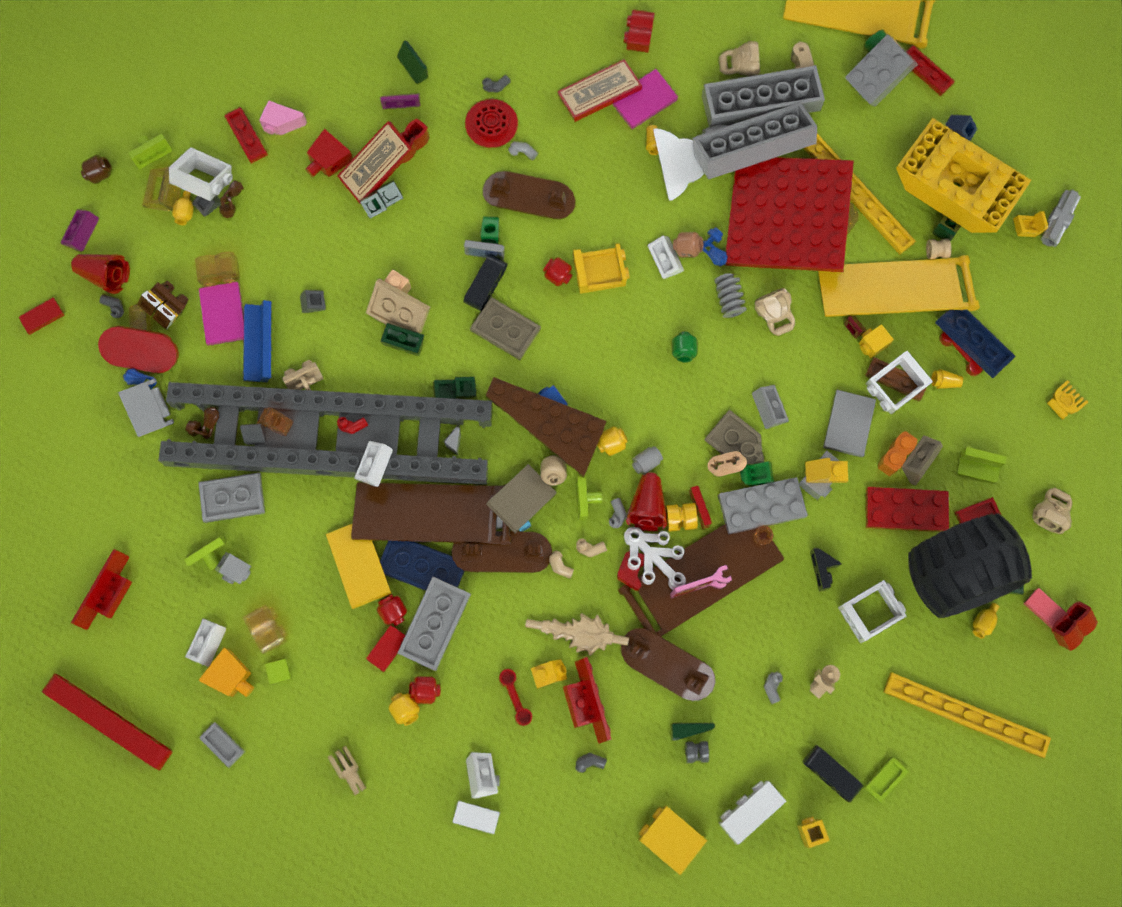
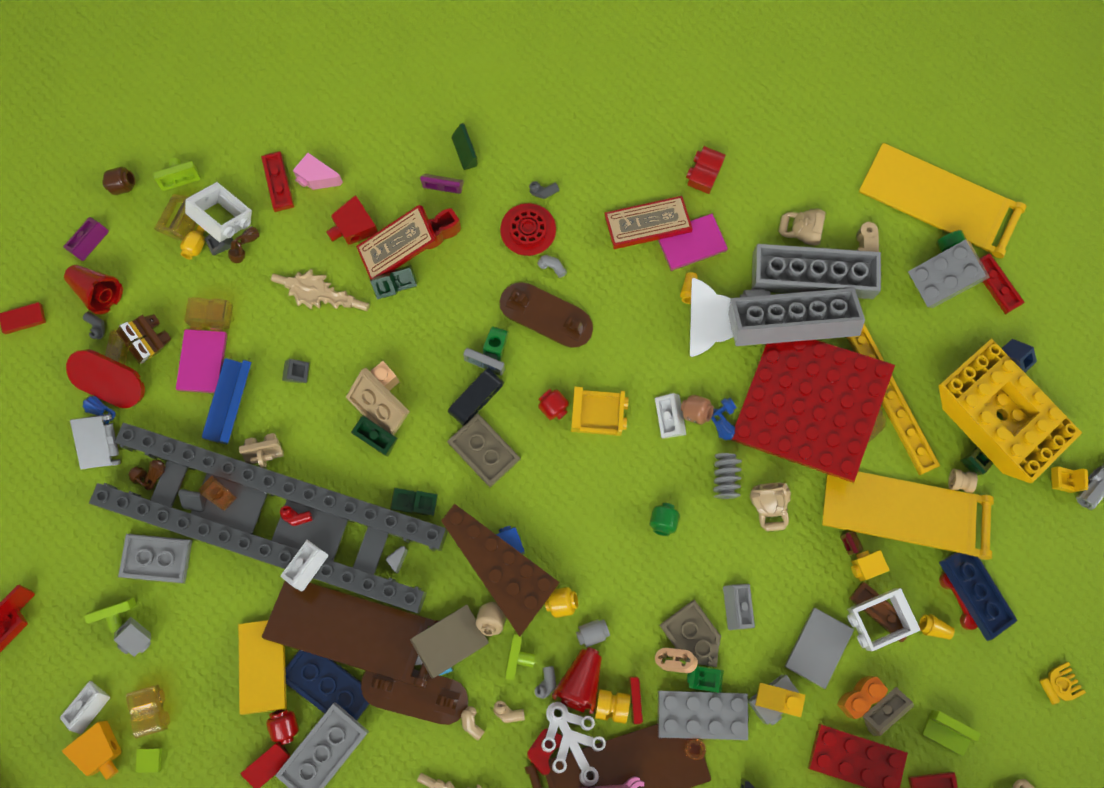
camera: 15 degrees right, 0 degrees up
(308, 225) = (312, 289): none -> tan piece

